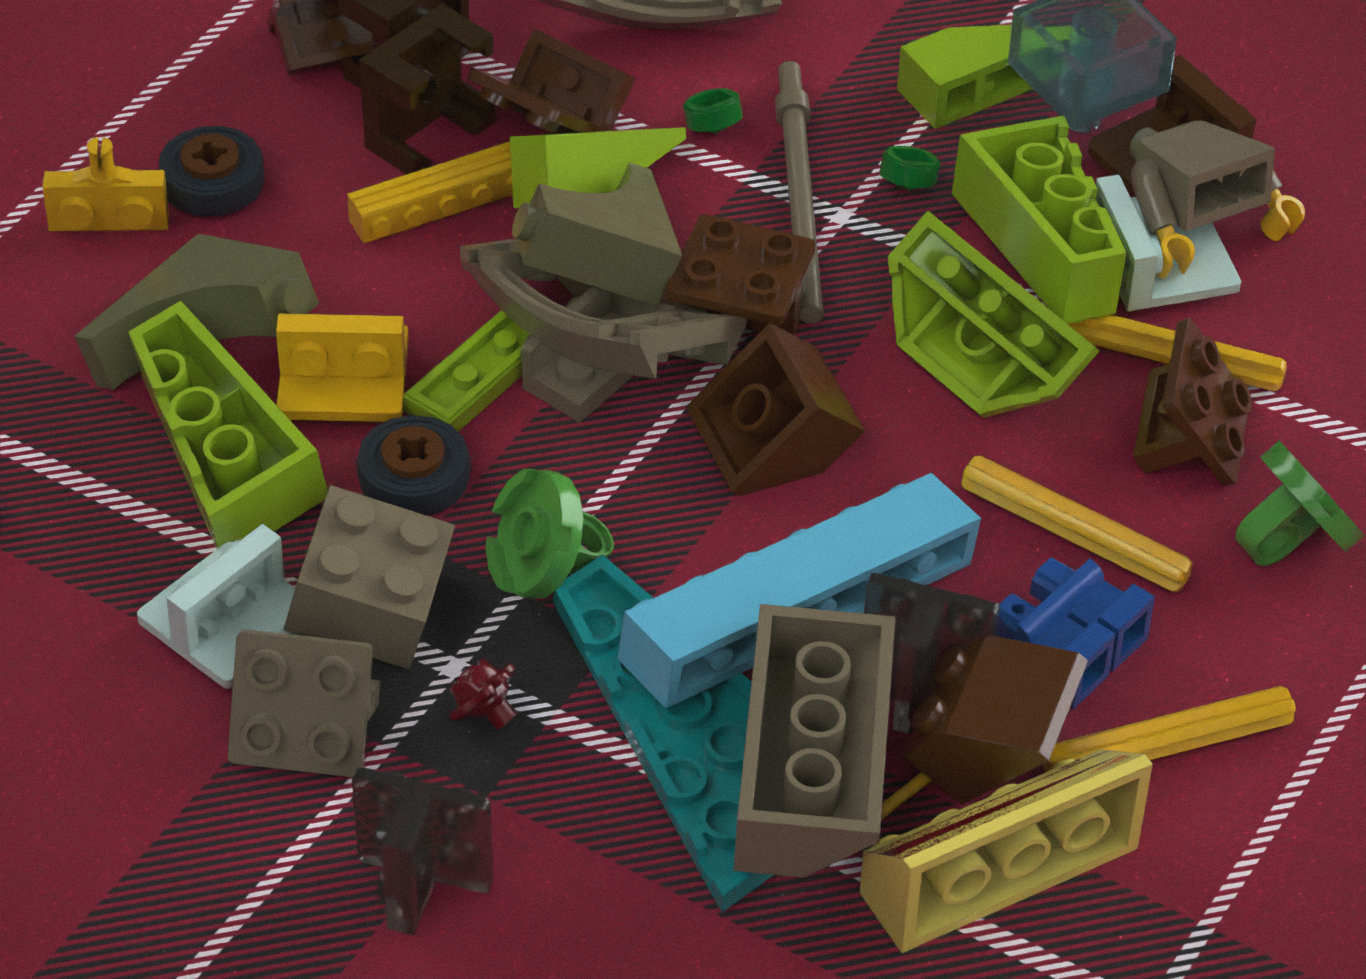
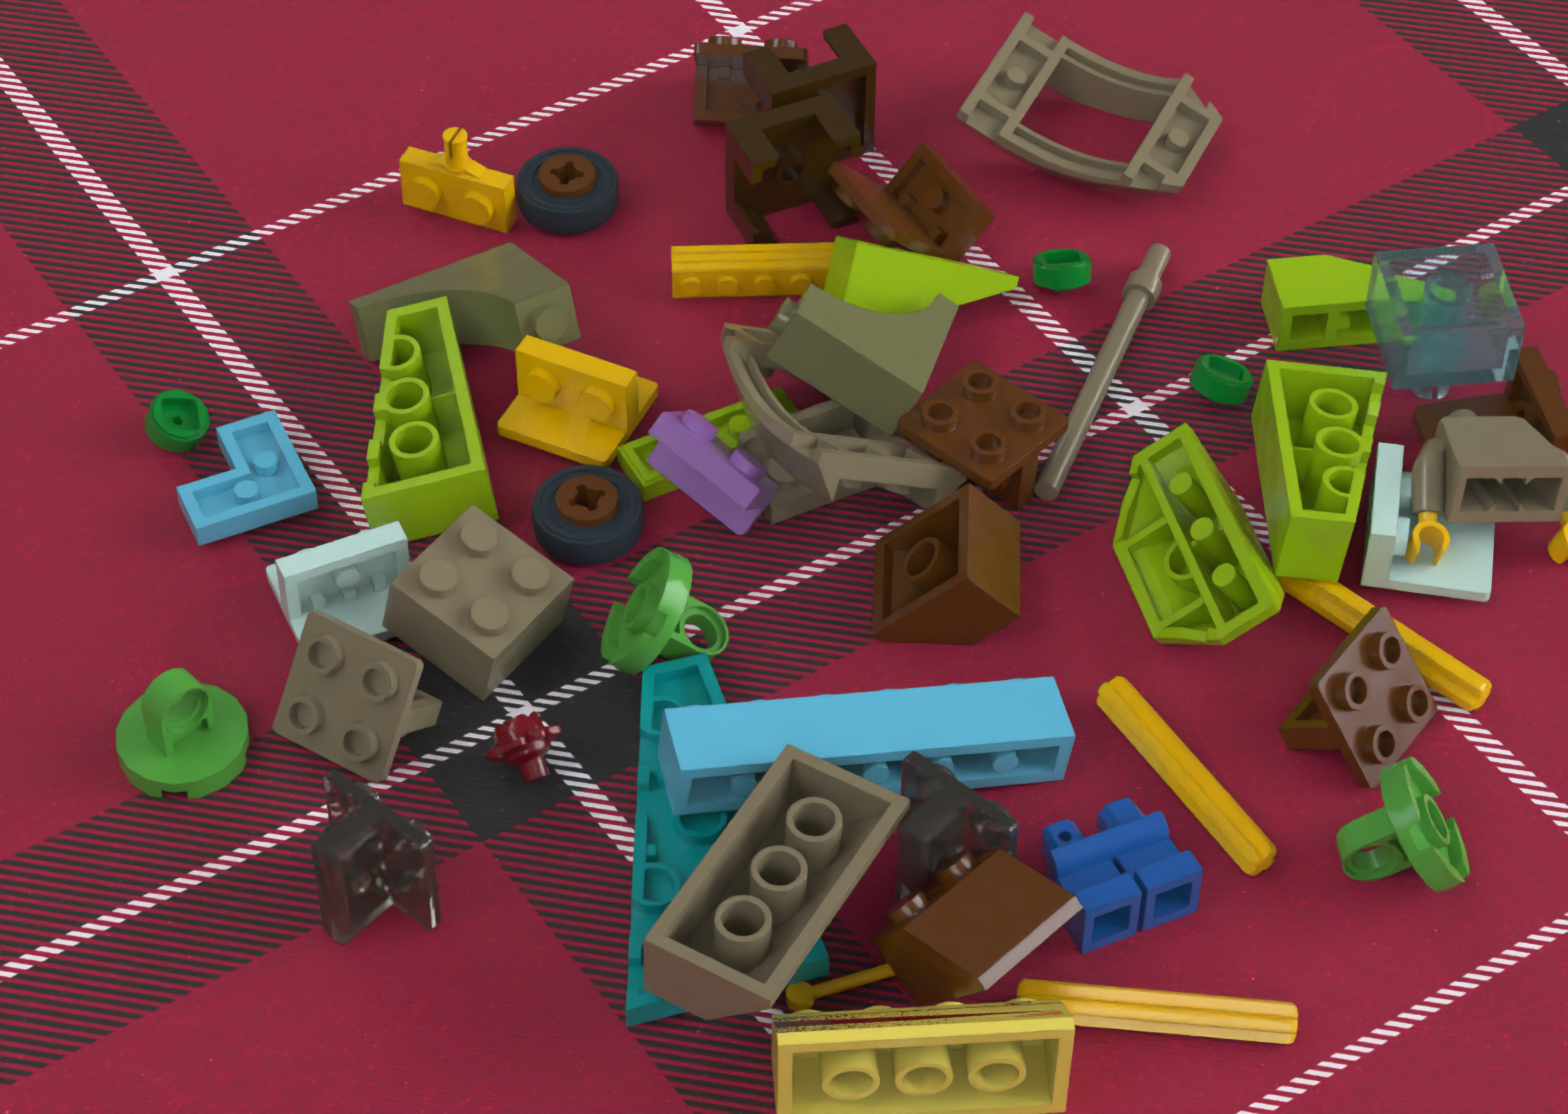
camera: 25 degrees right, 0 degrees up
(79, 541) = (261, 487): none -> medium azure plate
(149, 798) = (182, 737): none -> bright green tile
(514, 390) = (709, 471): none -> medium lavender bracket

